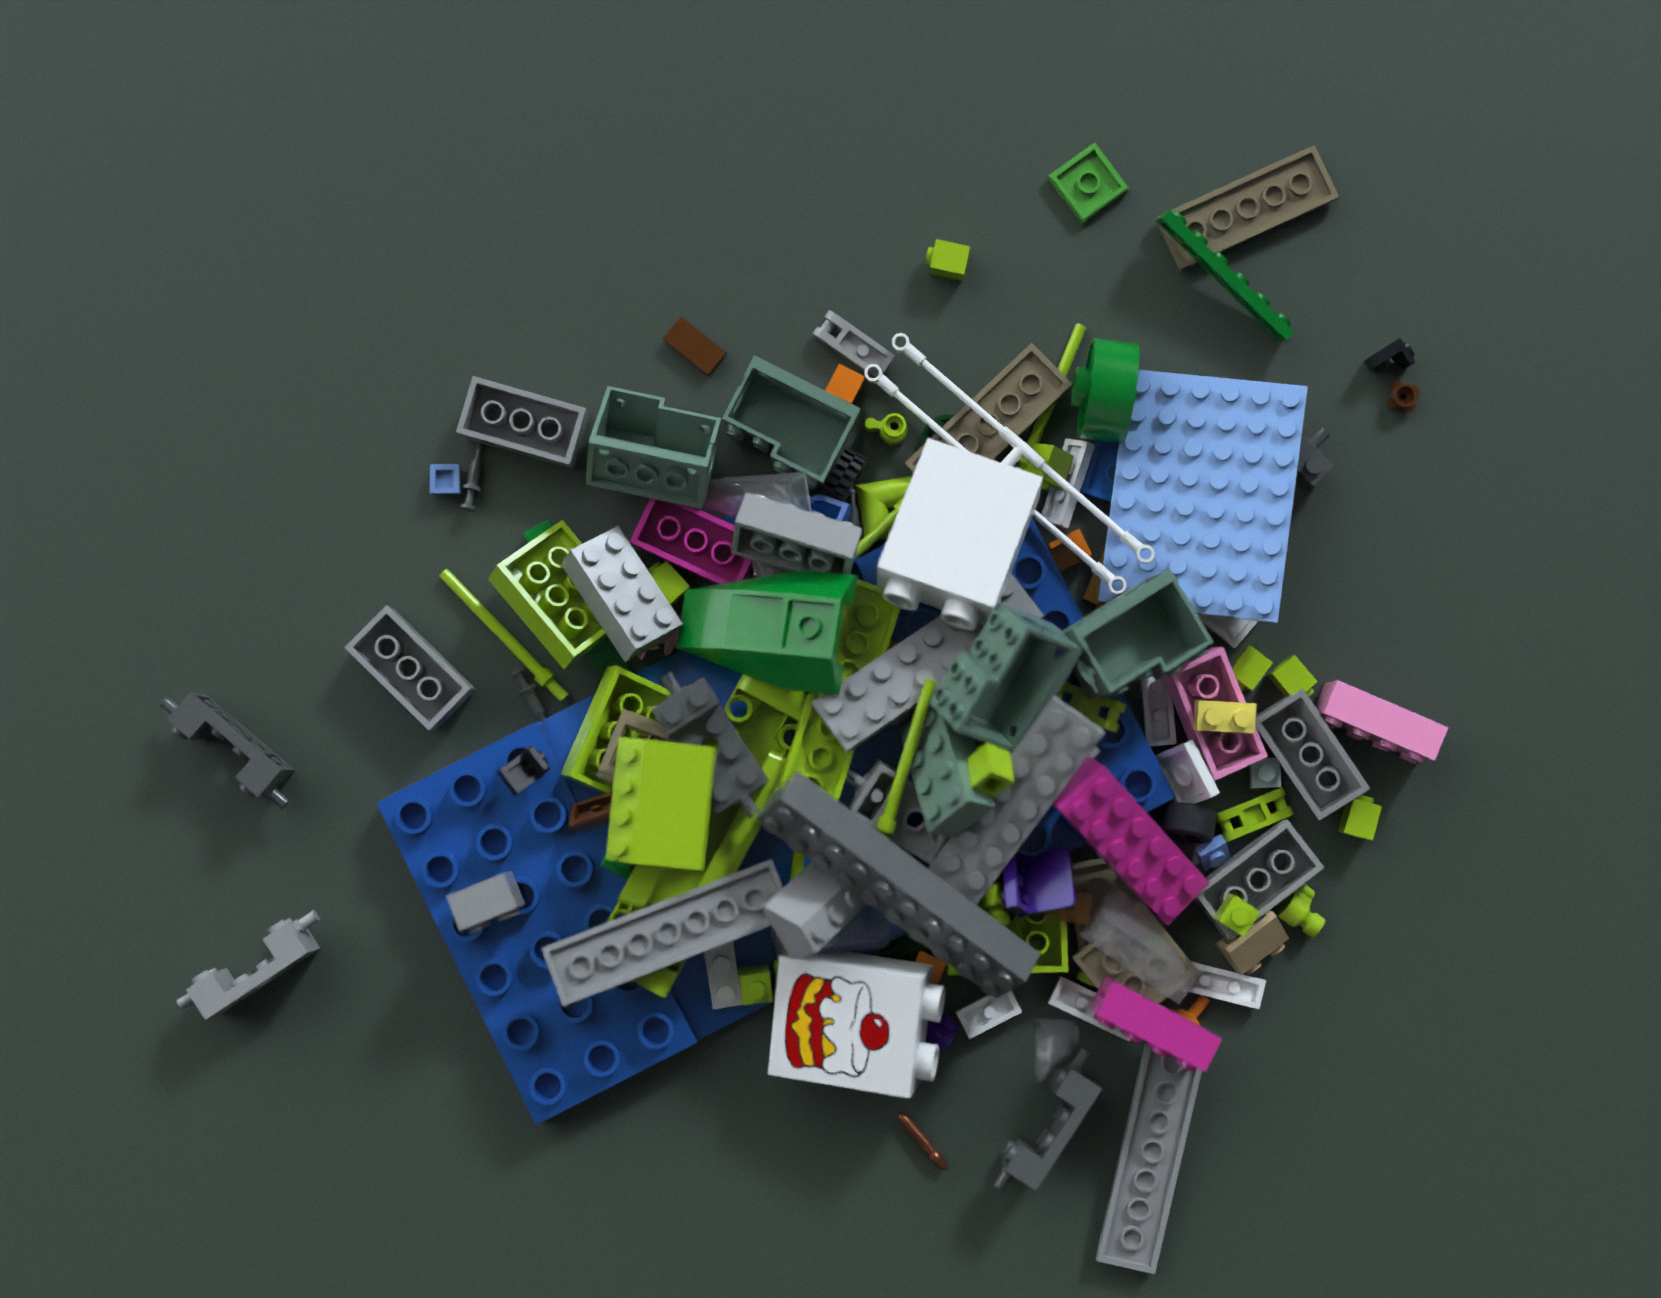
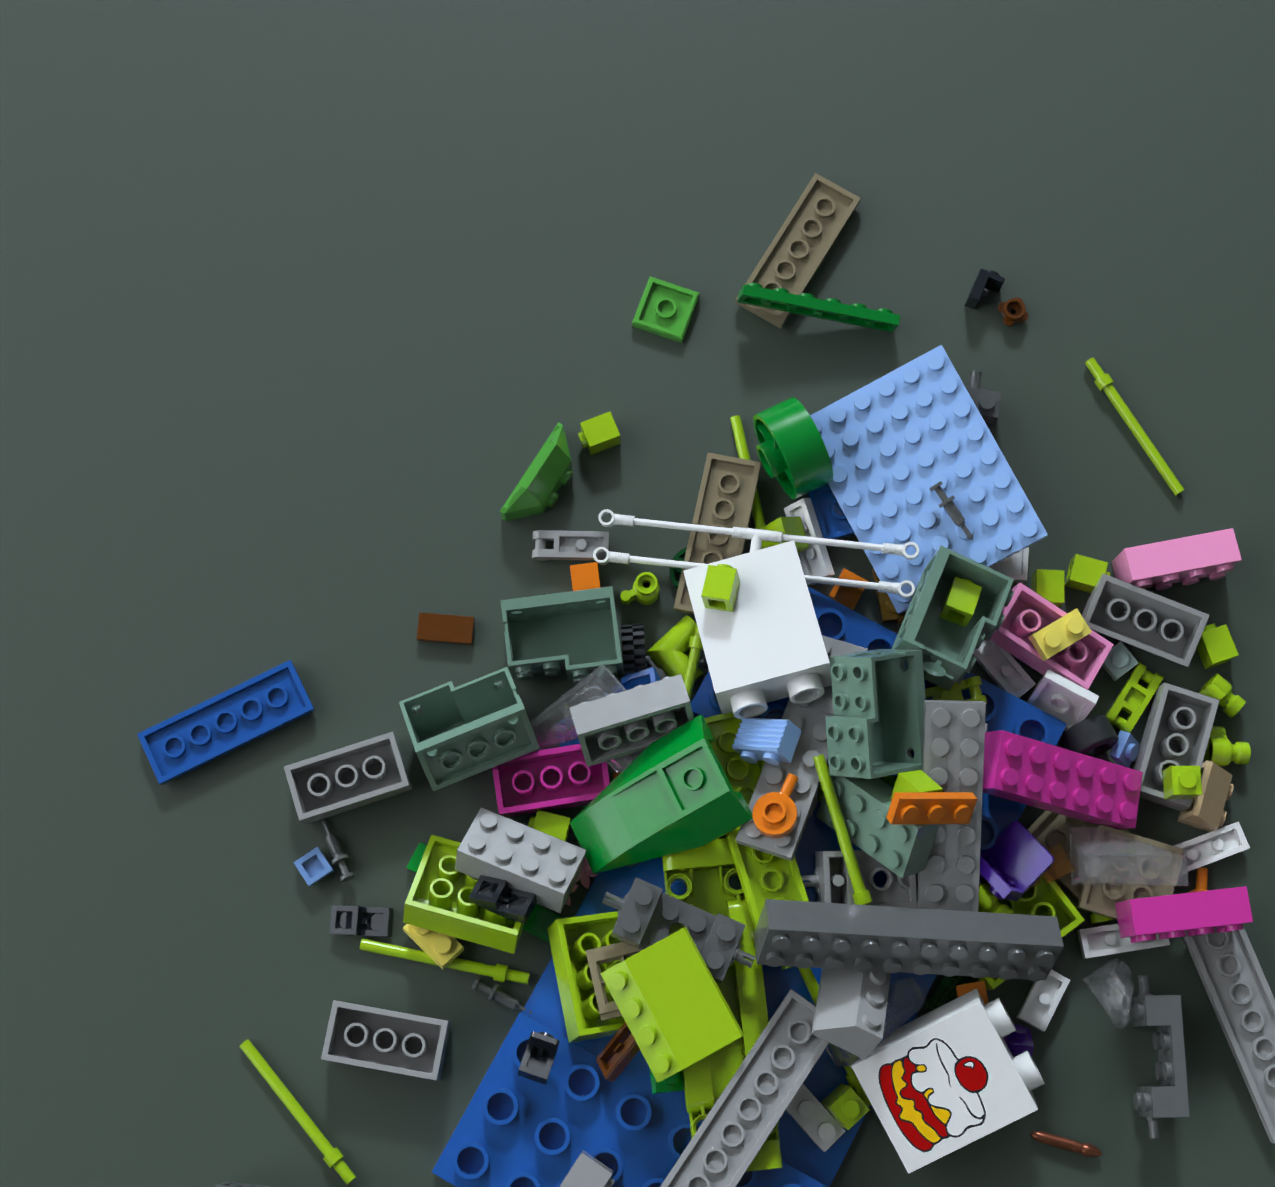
camera: 30 degrees left, 10 degrees down
(305, 733) = (333, 1156): none -> lime bar
(451, 302) = (225, 722): none -> blue plate
(455, 553) = (361, 921): none -> black slope
(505, 620) = (437, 946): none -> light yellow plate
(581, 617) = (498, 898): none -> black slope
(860, 703) = (776, 812): none -> orange piece
(869, 268) = (542, 479): none -> bright green wedge
(897, 636) = (766, 740): none -> light blue brick
(947, 476) = (720, 587): none -> lime brick
(992, 791) = (931, 808): none -> orange plate
(1155, 629) = (960, 601): none -> lime brick
(1208, 539) = (951, 509): none -> dark grey piece
(1334, 860) = (1221, 690): none -> lime piece
(1438, 518) = (1104, 382): none -> lime bar

